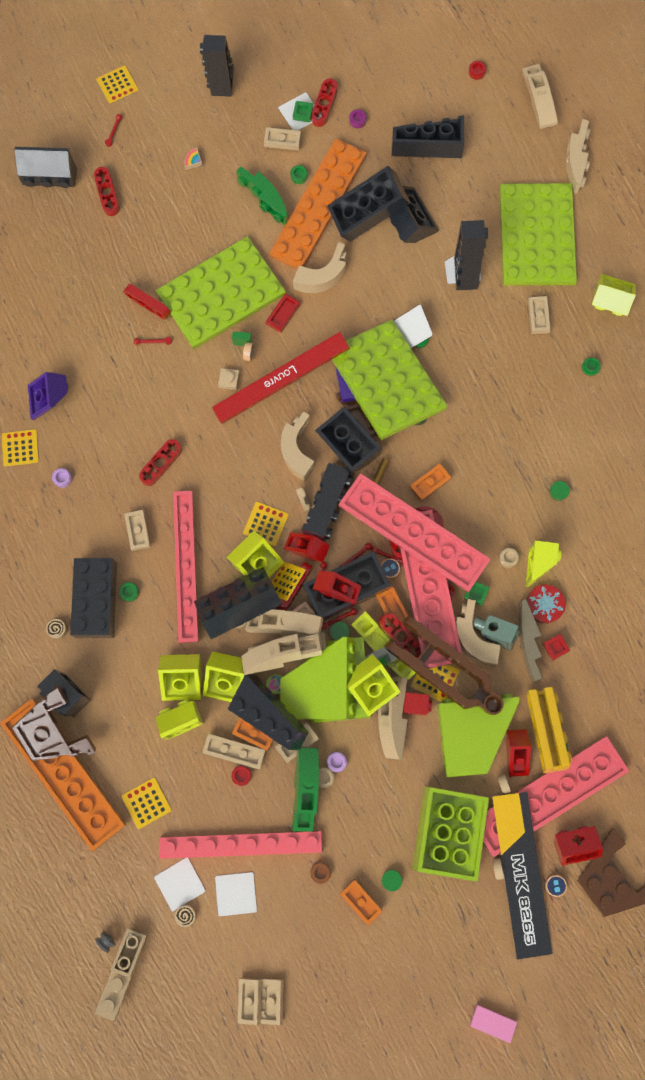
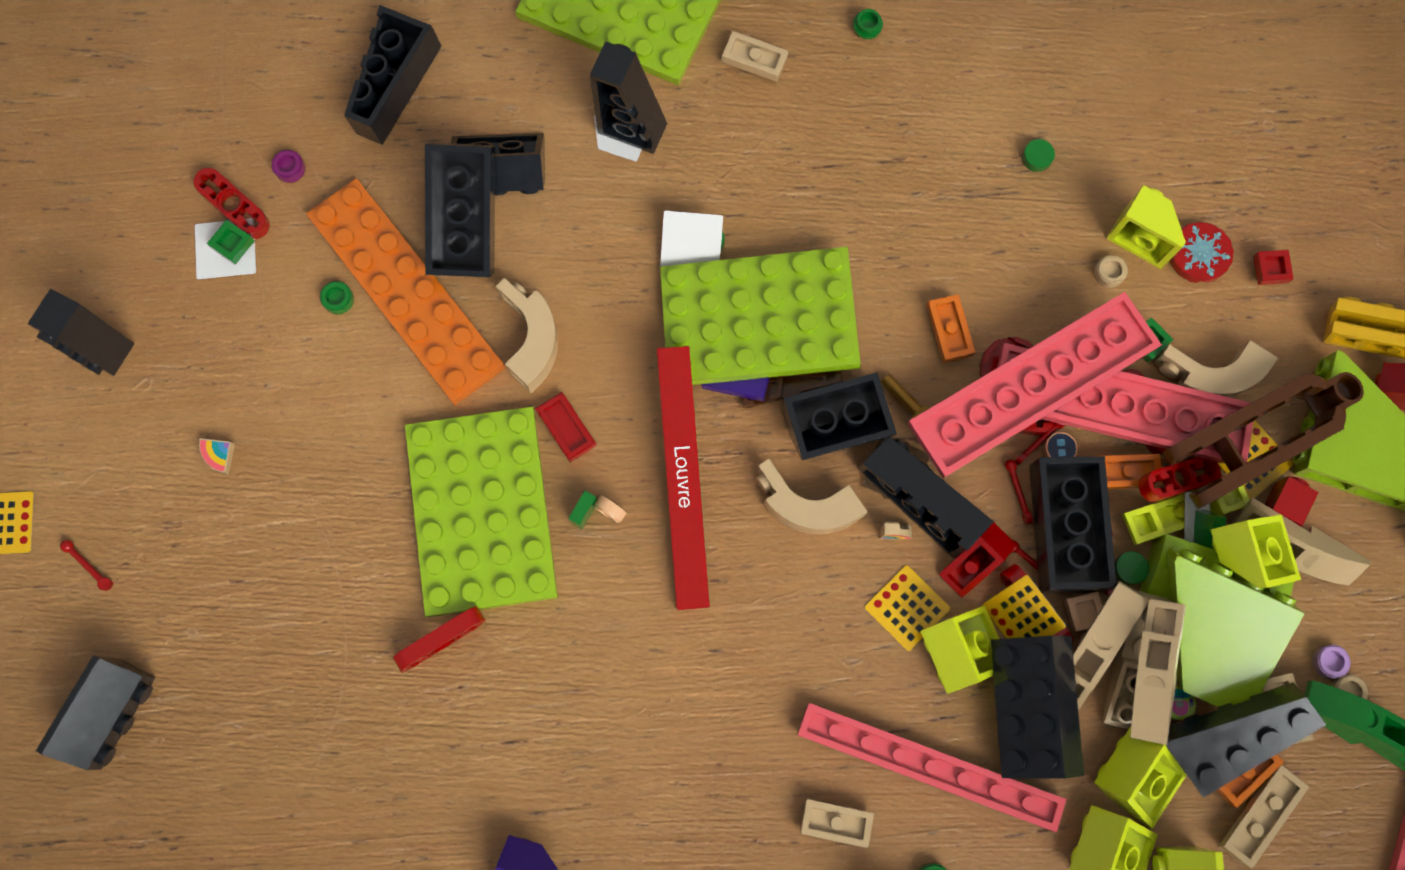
camera: 75 degrees left, 0 degrees up
(105, 198) = (188, 613): red beam -> none
(161, 470) = (747, 738): red beam -> none
(167, 340) = (522, 634): red hinge -> none
(228, 379) = (639, 562): tan plate -> none
(241, 775) = (1304, 821): red tile -> none
(263, 189) = (358, 359): green slope -> none
(282, 138) = (260, 295): tan plate -> none
(337, 587) = (1082, 538): red slope -> none
(504, 635) = (1228, 334): sand green torso -> none
(528, 633) = (1243, 297): dark tan slope -> none

